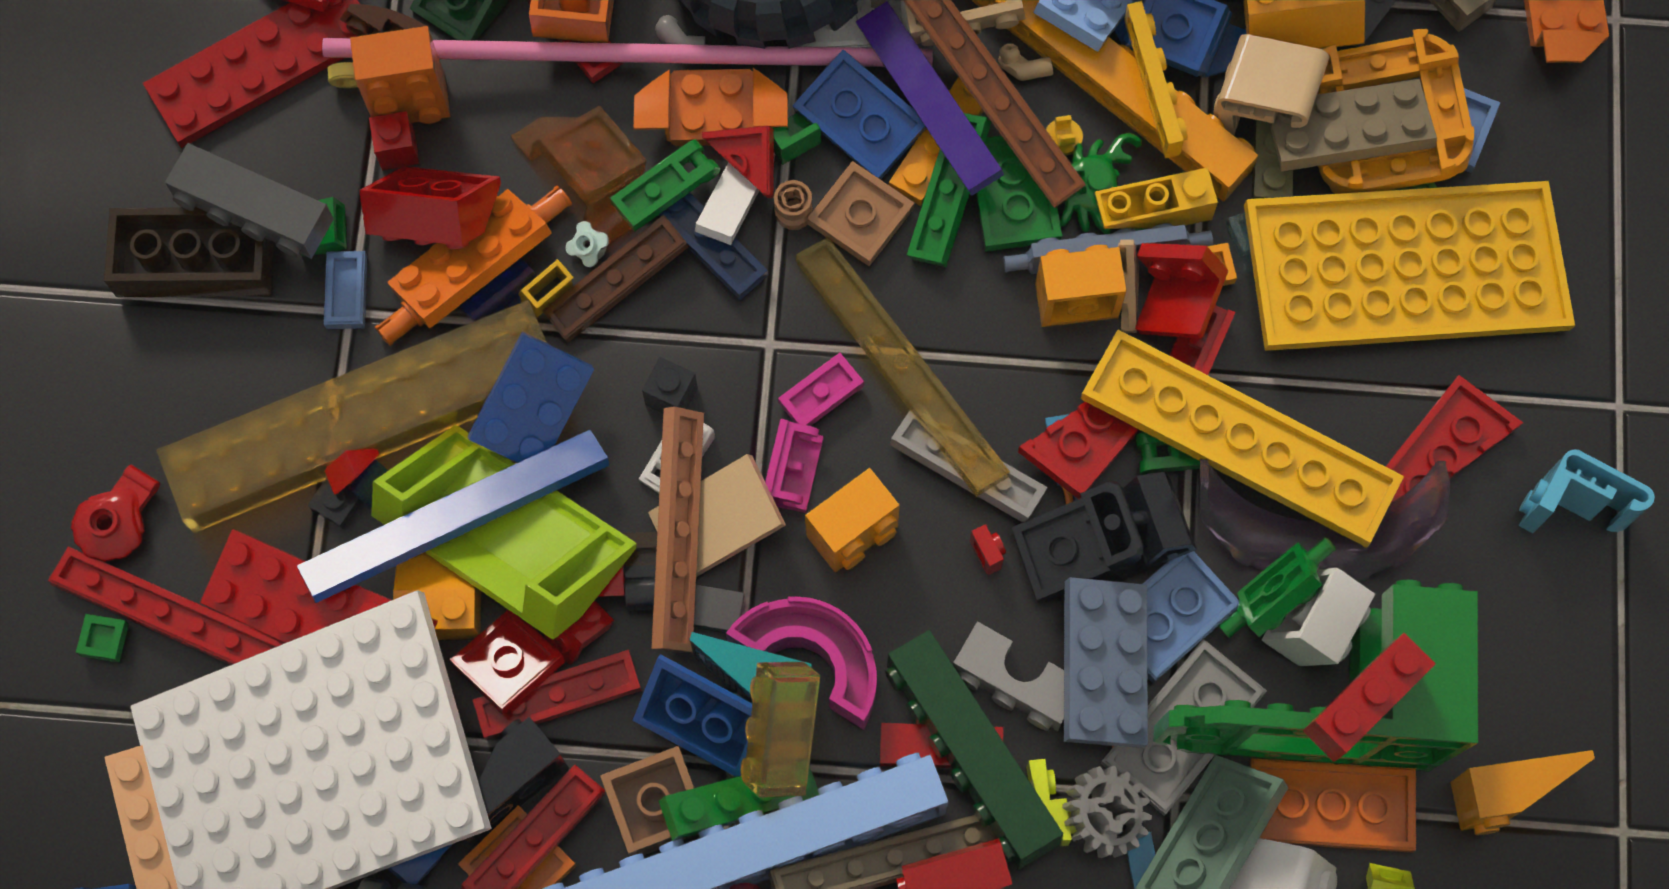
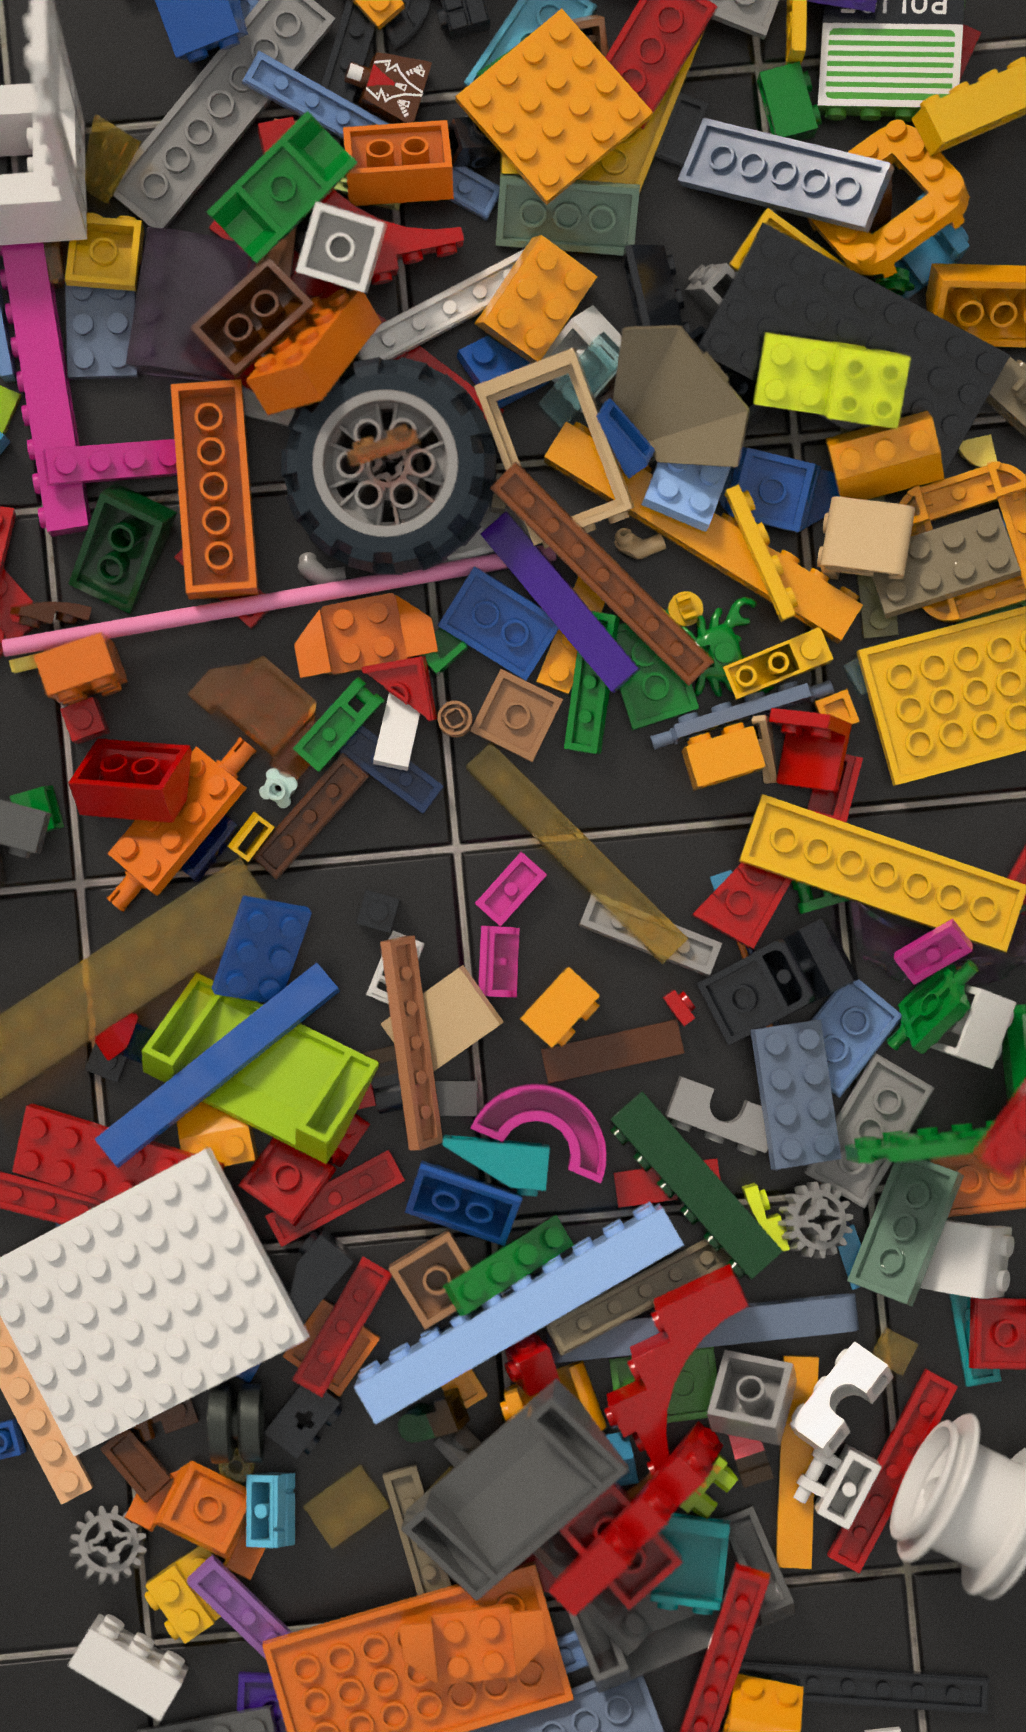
camera: 15 degrees left, 15 degrees up
(345, 290) = (71, 865): medium blue tile -> none
(780, 729) = (534, 1213): clear yellow brick -> none
(905, 587) = (612, 1051): none -> reddish brown tile
(1286, 527) = (933, 951): none -> dark pink plate
(1399, 26) = (978, 451): none -> light yellow tile

